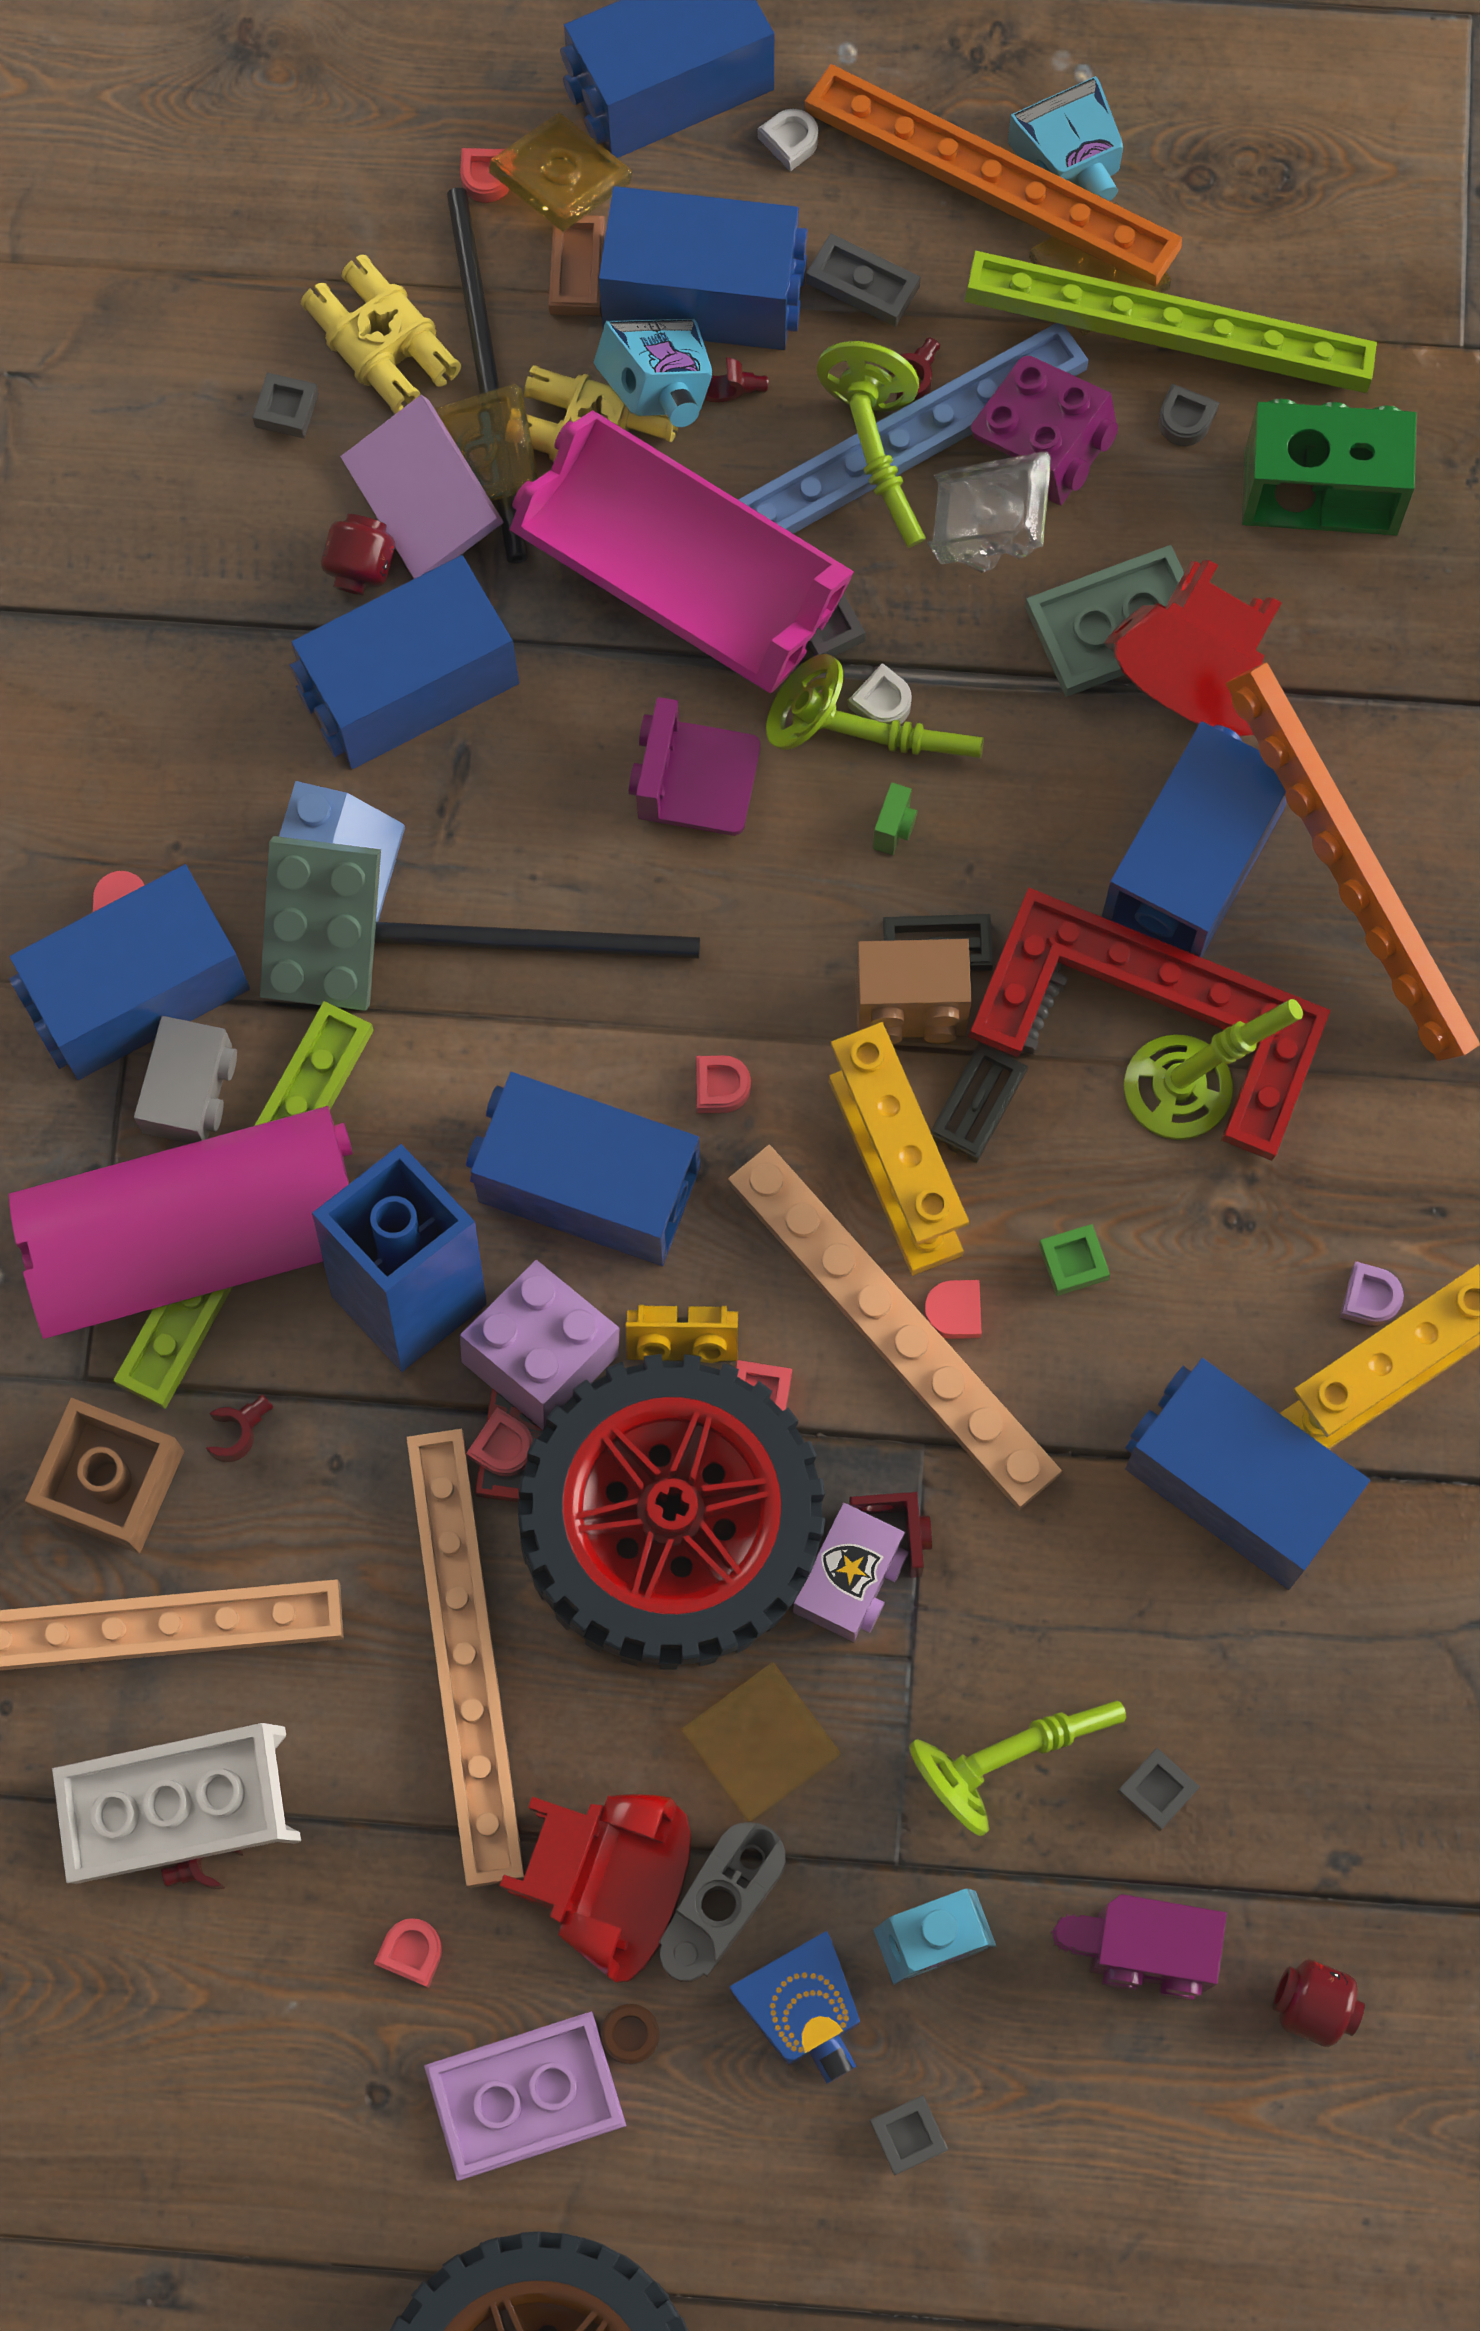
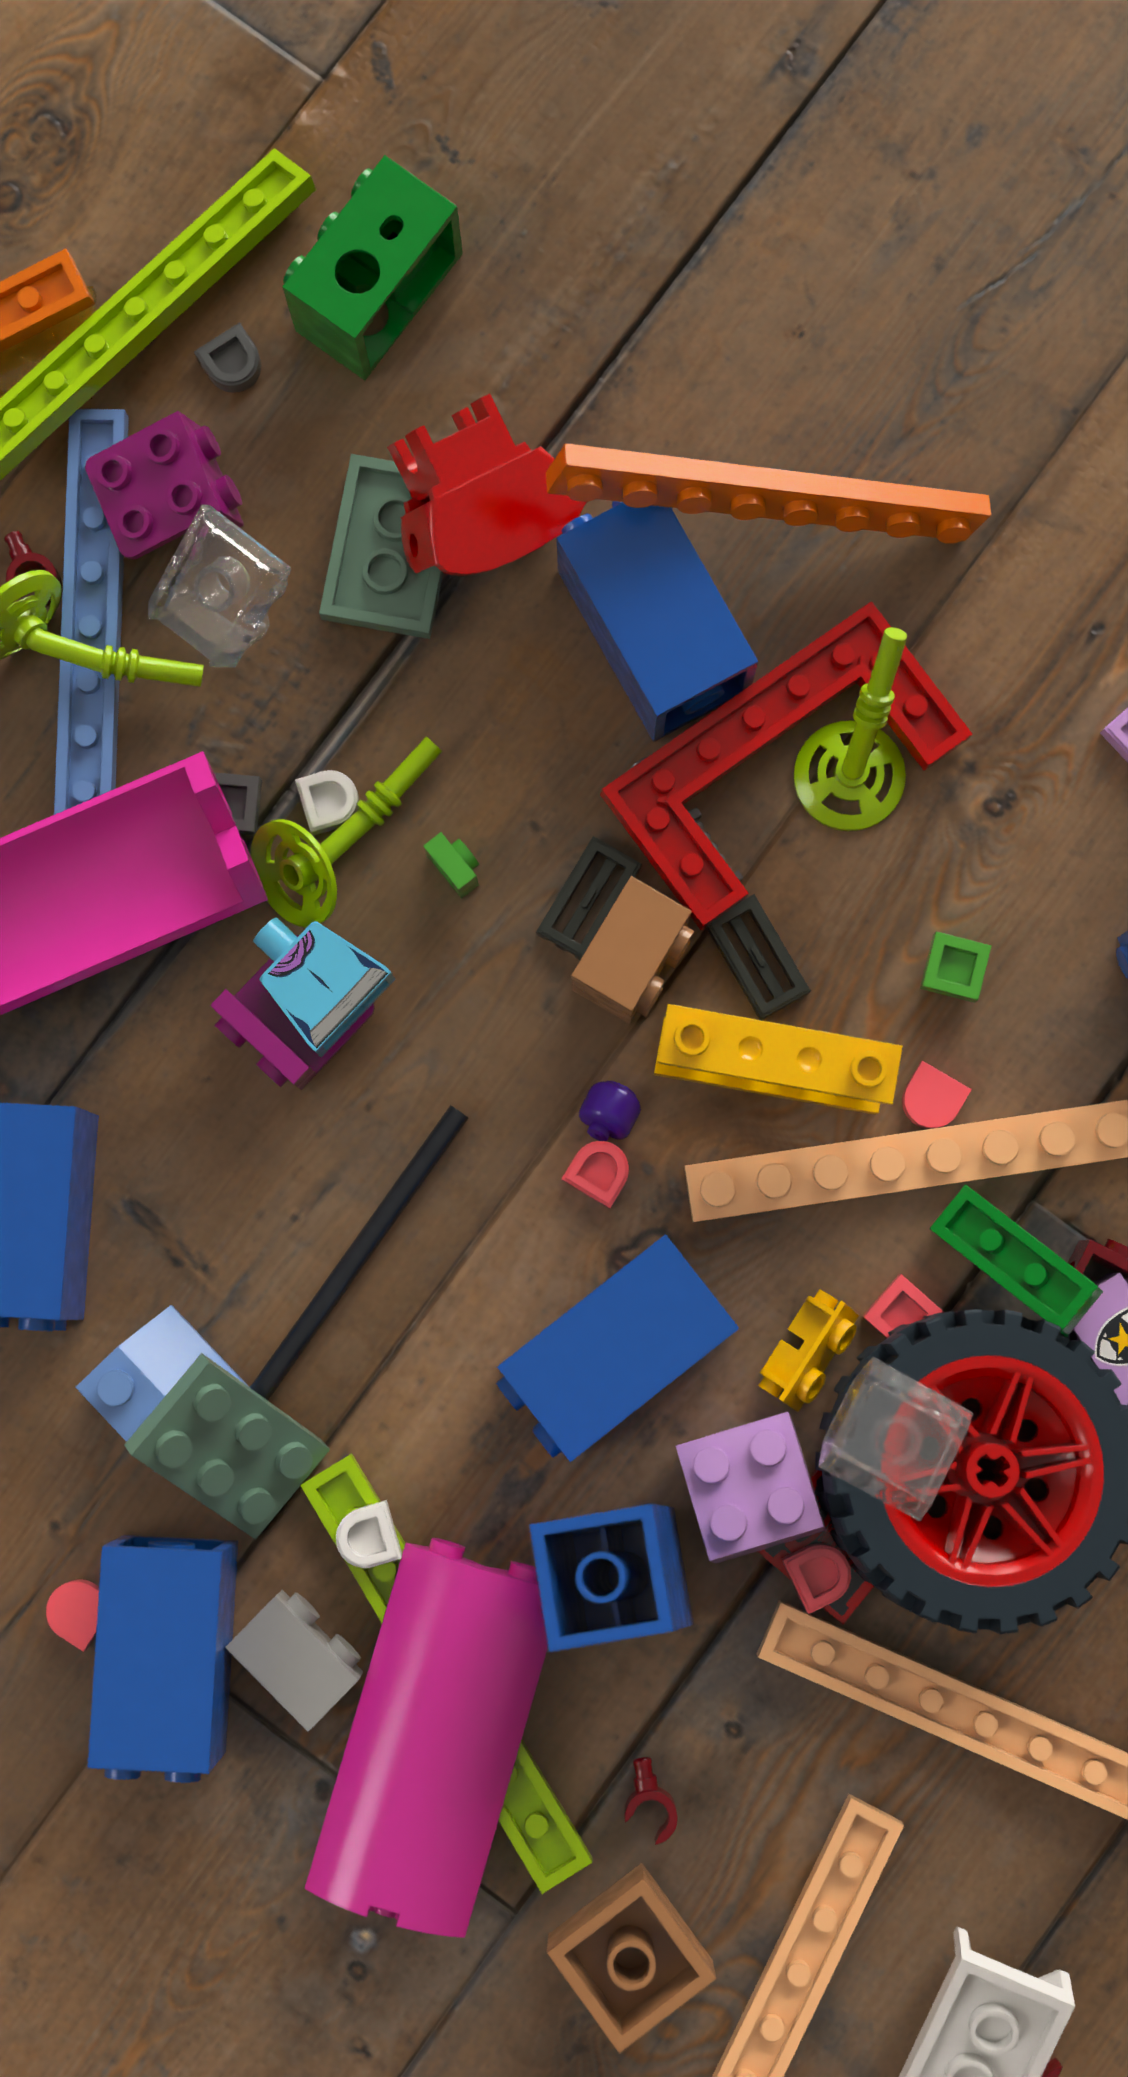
camera: 55 degrees left, 10 degrees up
(316, 1073) = (368, 1536): none -> white tile
(647, 1402) = (894, 1438): none -> clear slope
(730, 772) = (319, 980): none -> medium azure torso
(776, 1064) = (609, 1111): none -> dark purple piece
(860, 1443) = (1016, 1260): none -> green plate

